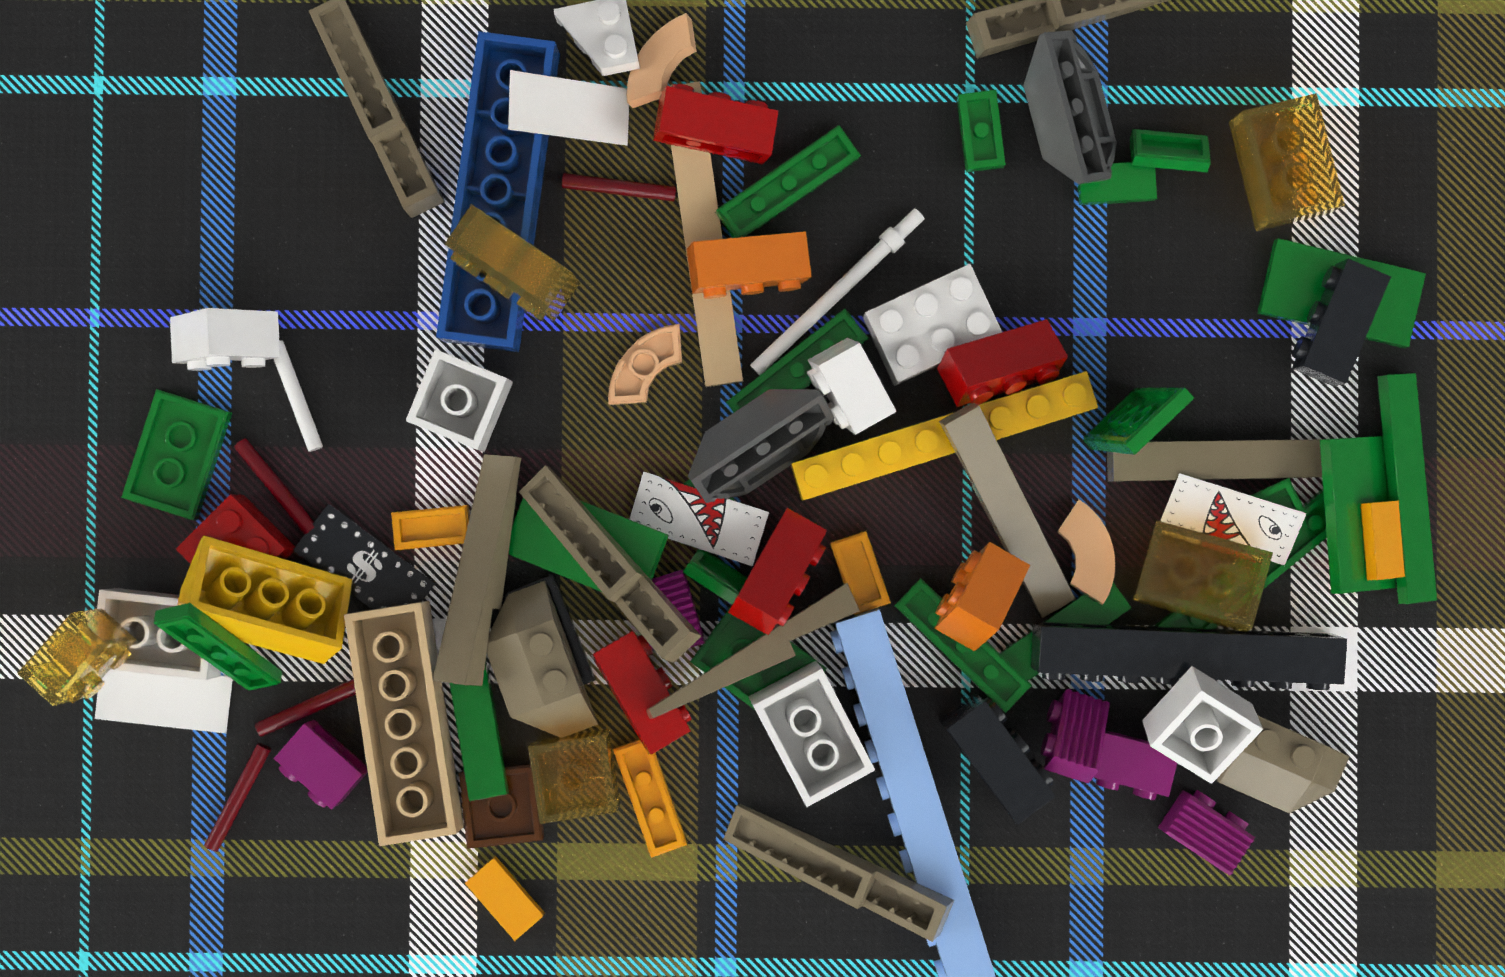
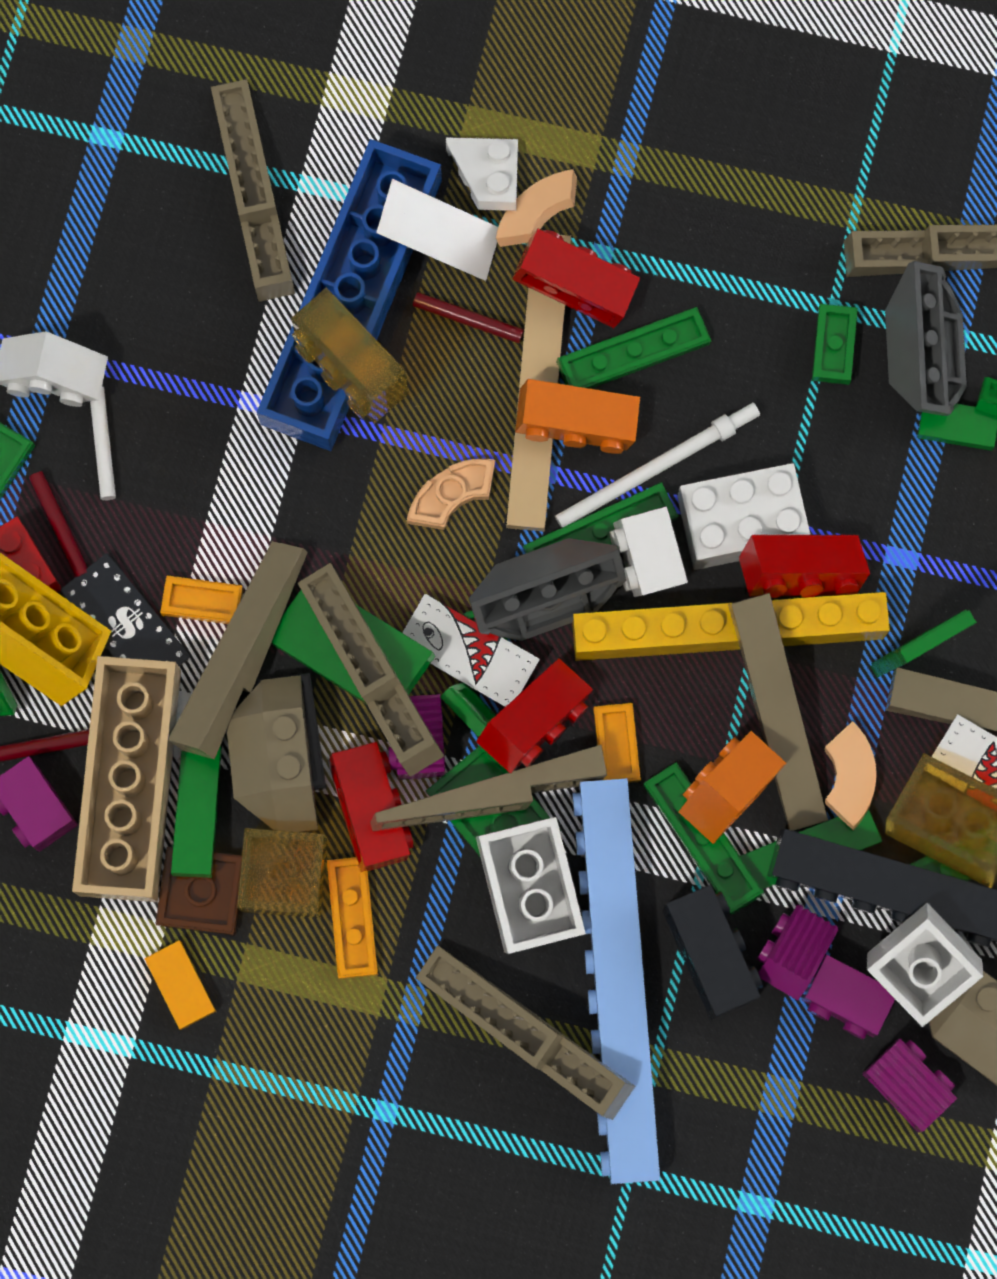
camera: 15 degrees right, 10 degrees down
(459, 400) = (262, 481): white brick -> none

